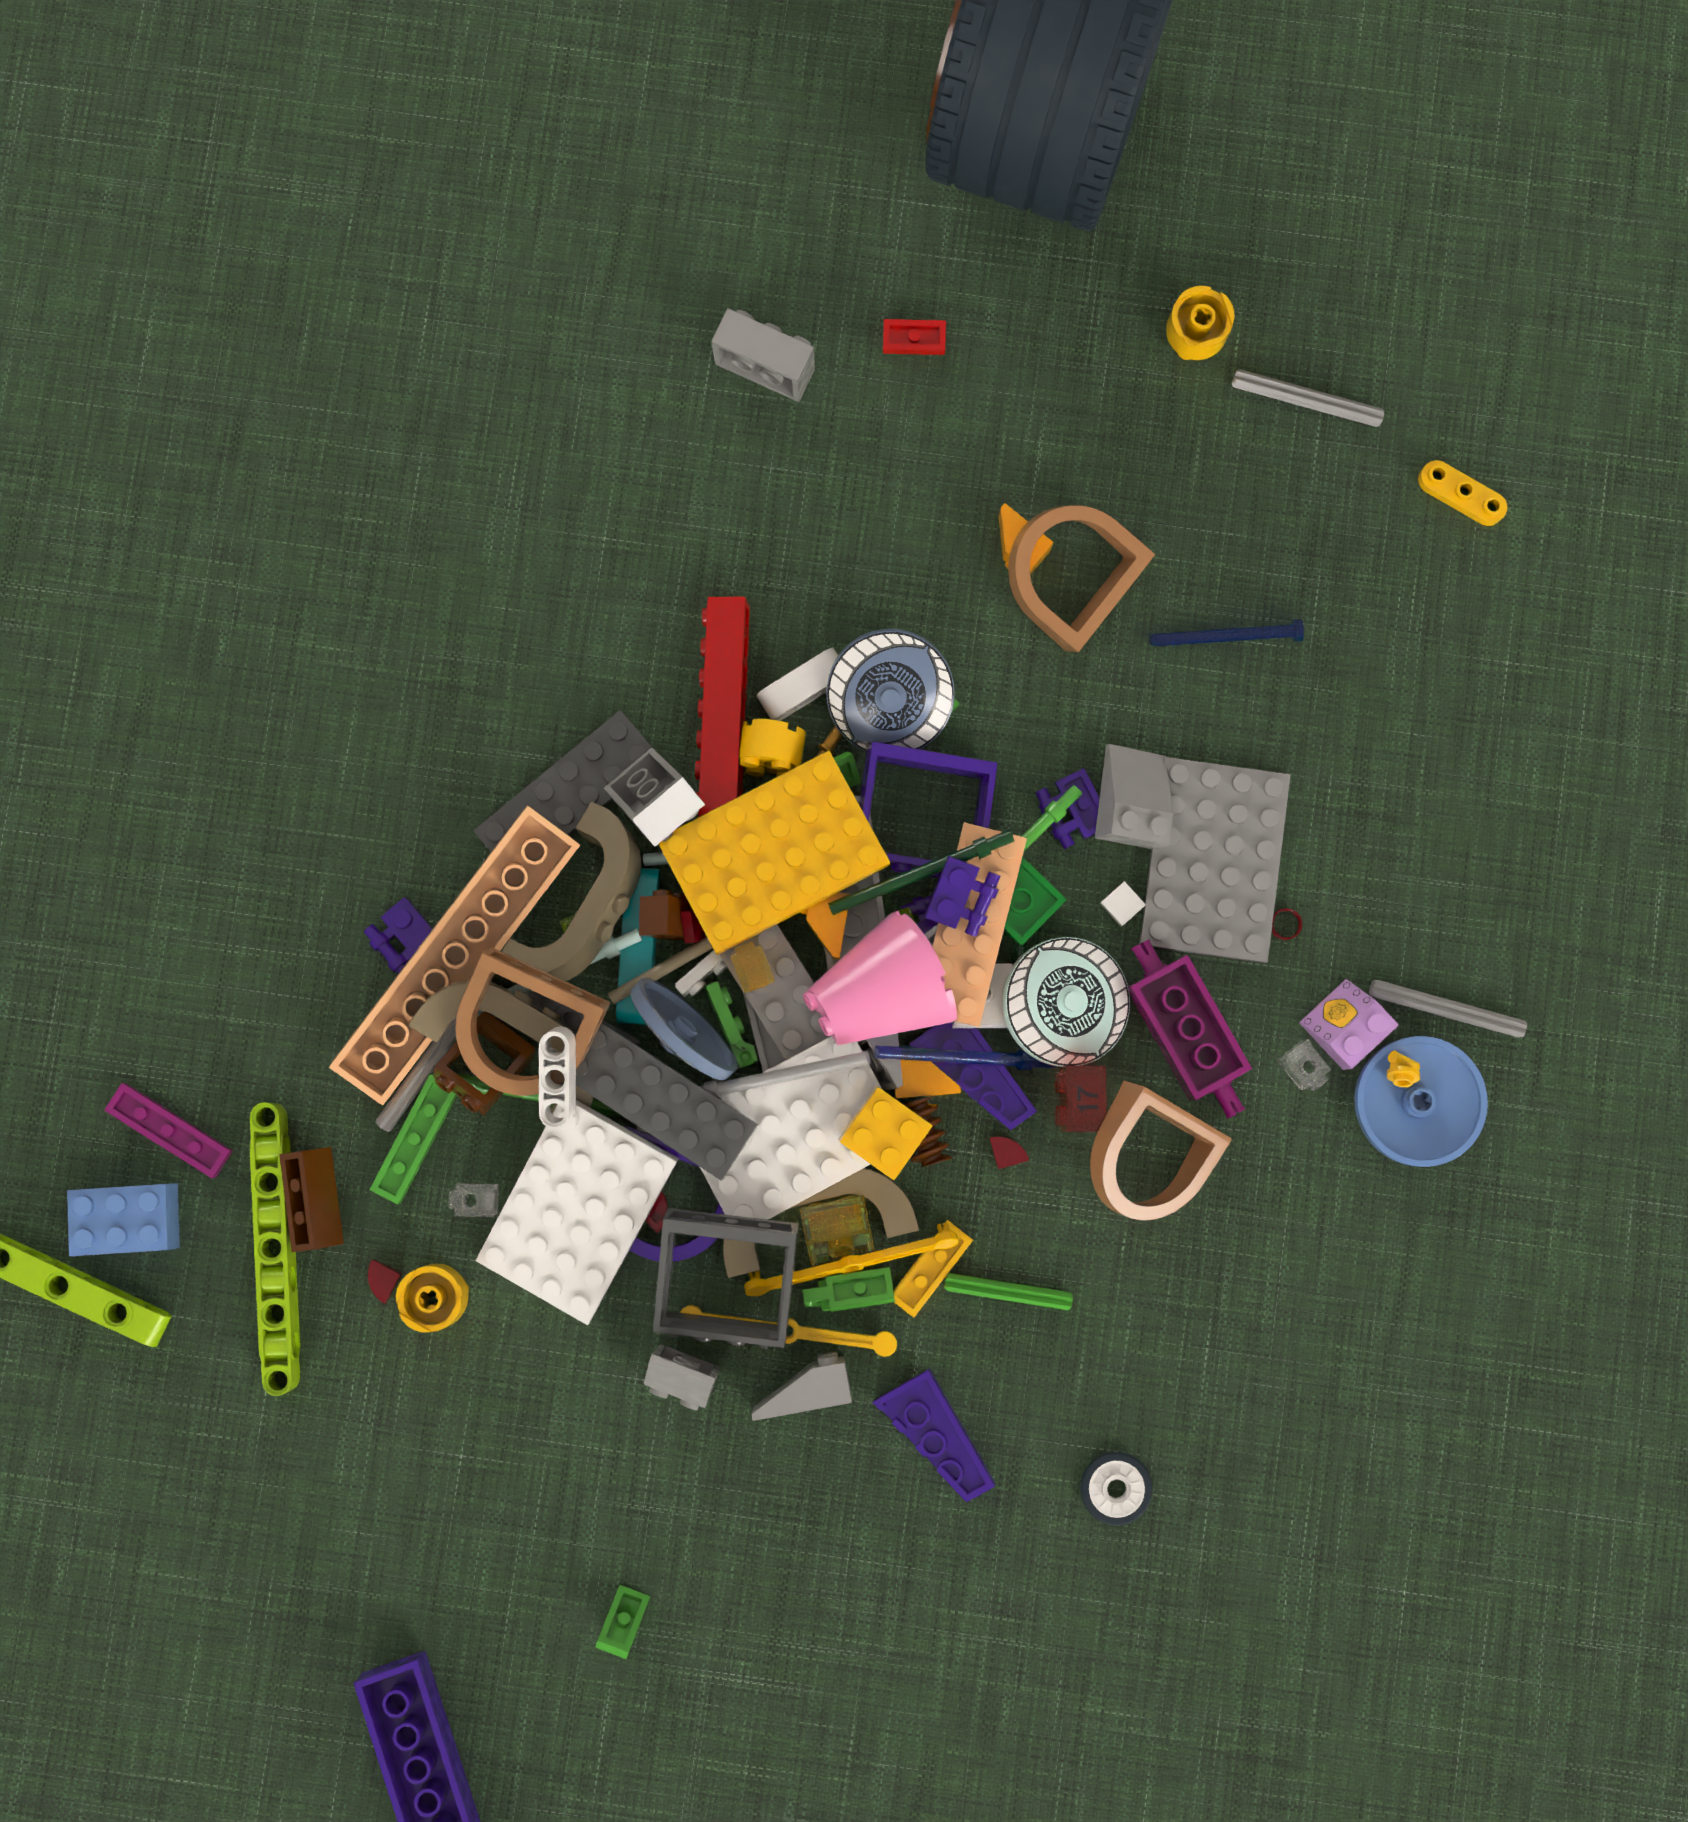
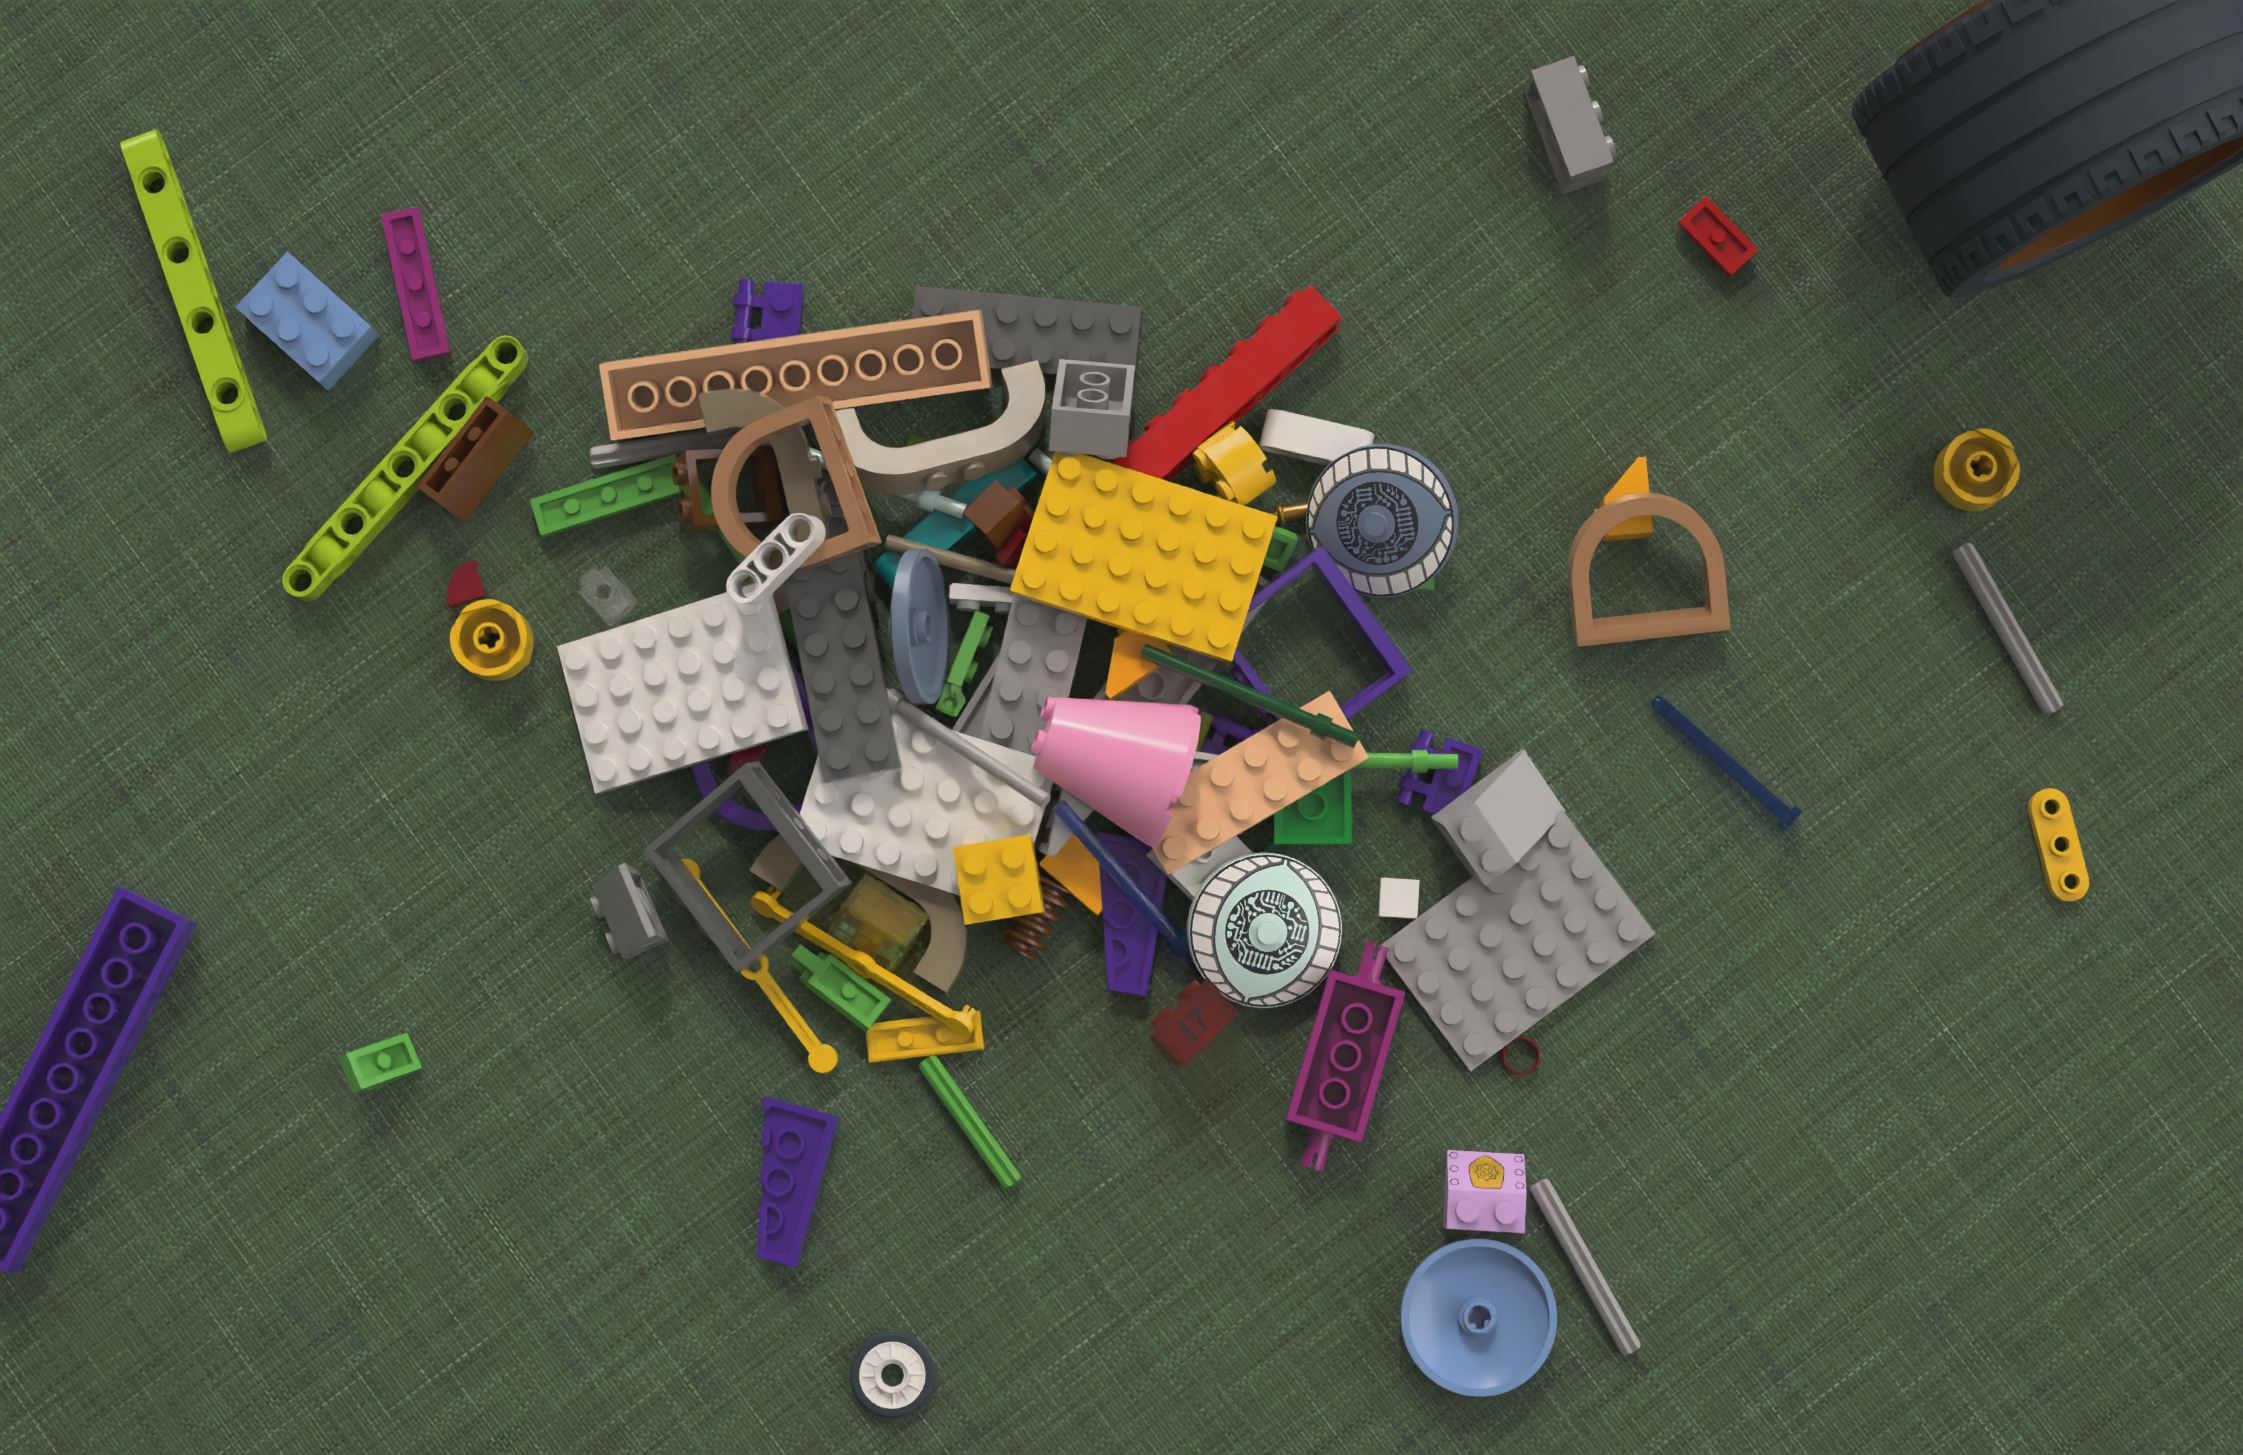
camera: 45 degrees right, 0 degrees up
(752, 967) = (1028, 632): clear yellow brick -> none
(814, 1387) = (732, 1033): light grey slope -> none
(953, 891) = (1260, 737): dark purple plate -> none
(1007, 1152) = (1087, 1006): dark red tile -> none
(1115, 1128) = (1191, 1070): medium nougat window -> none
(1293, 1062) = (1408, 1174): clear brick -> none
(1402, 1070) = (1489, 1274): yellow plate -> none

